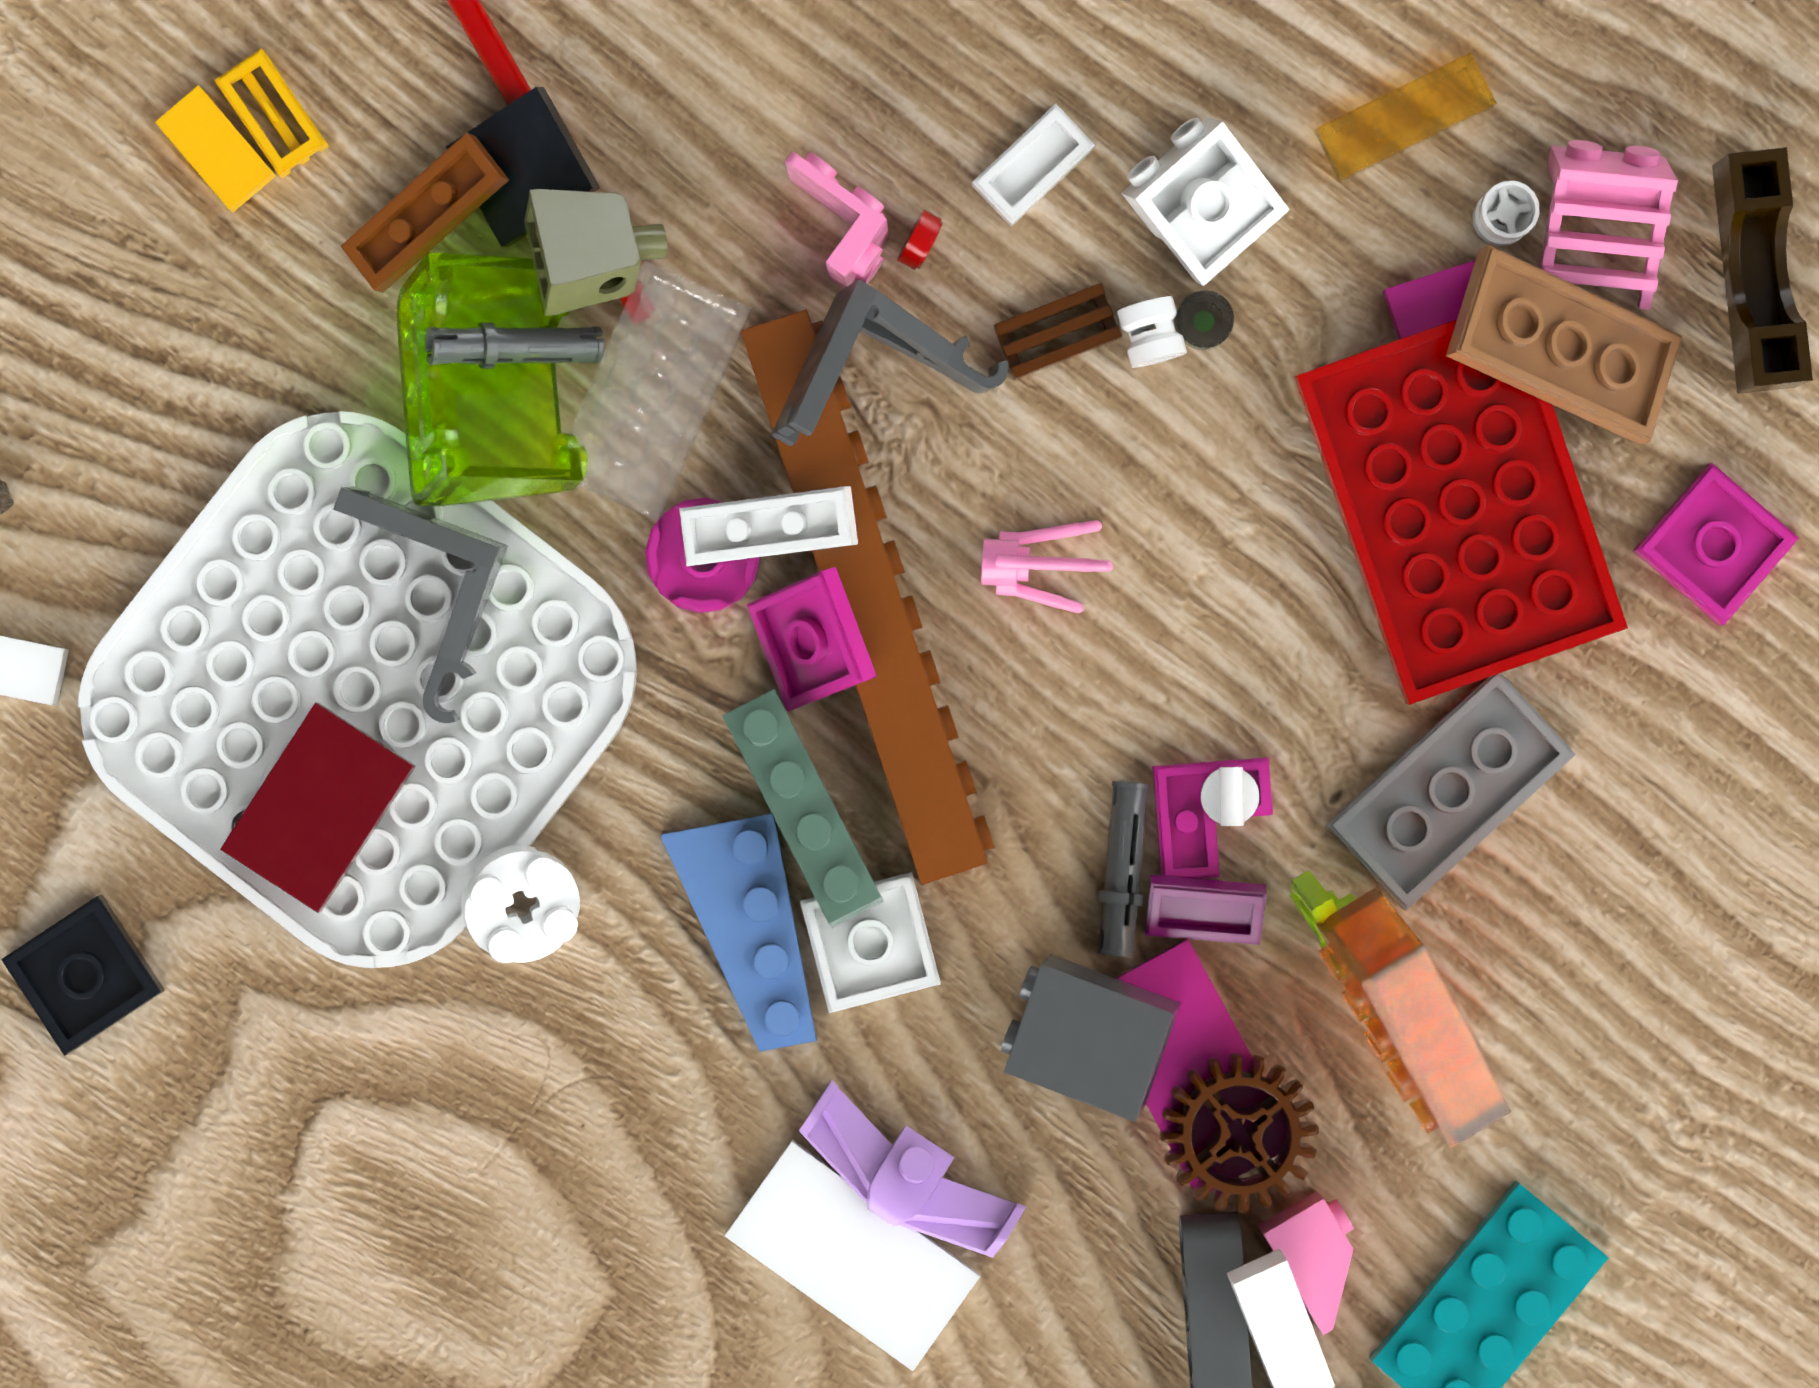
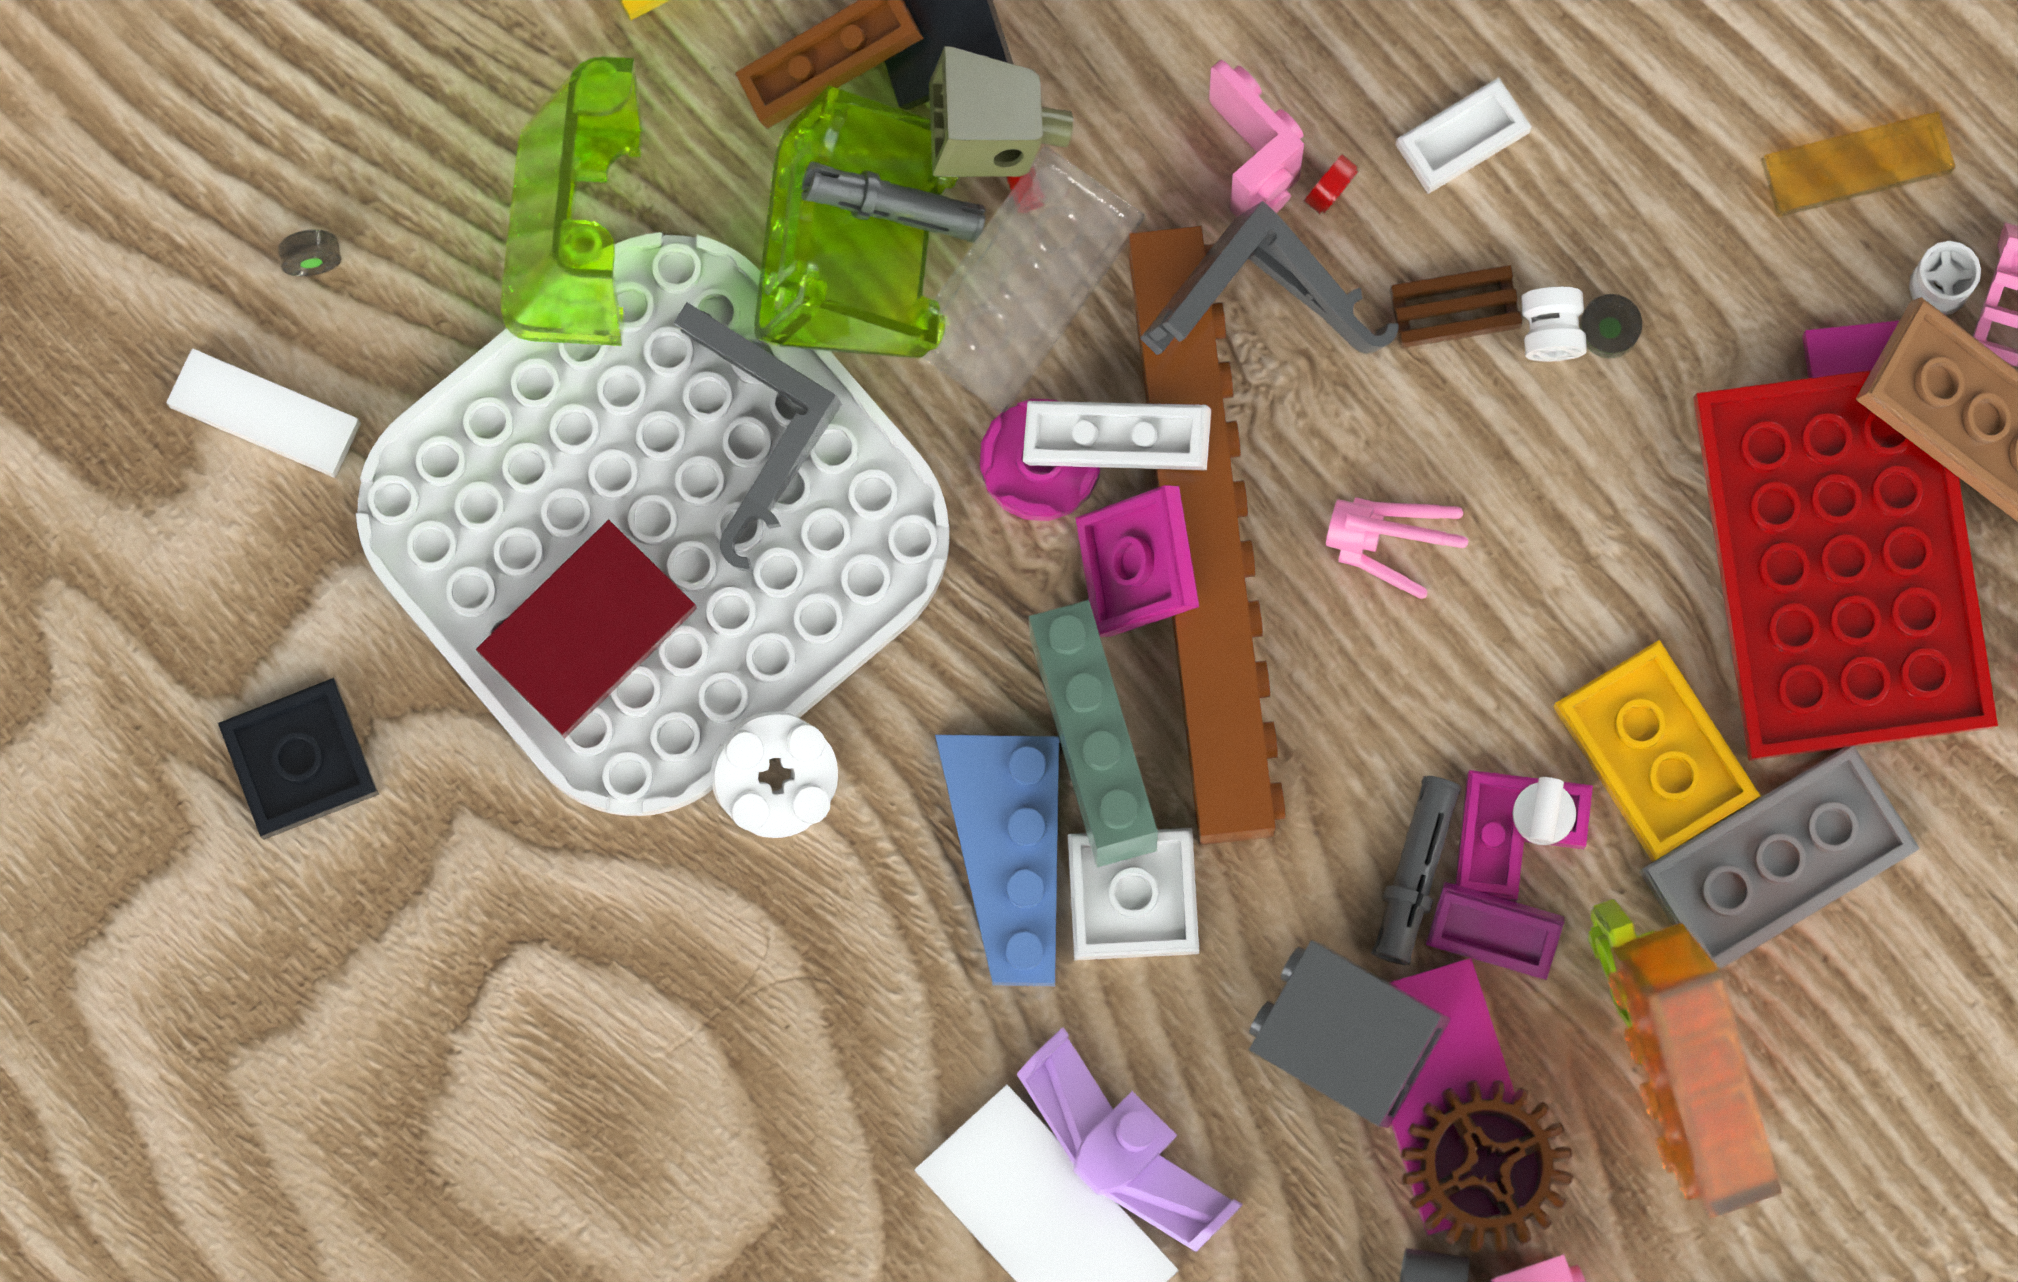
camera: 10 degrees right, 10 degrees down
(210, 483) = (557, 267): none -> clear neon green windscreen
(1204, 198) = (1634, 200): white plate -> none
(1320, 712) = (1656, 751): none -> yellow tile

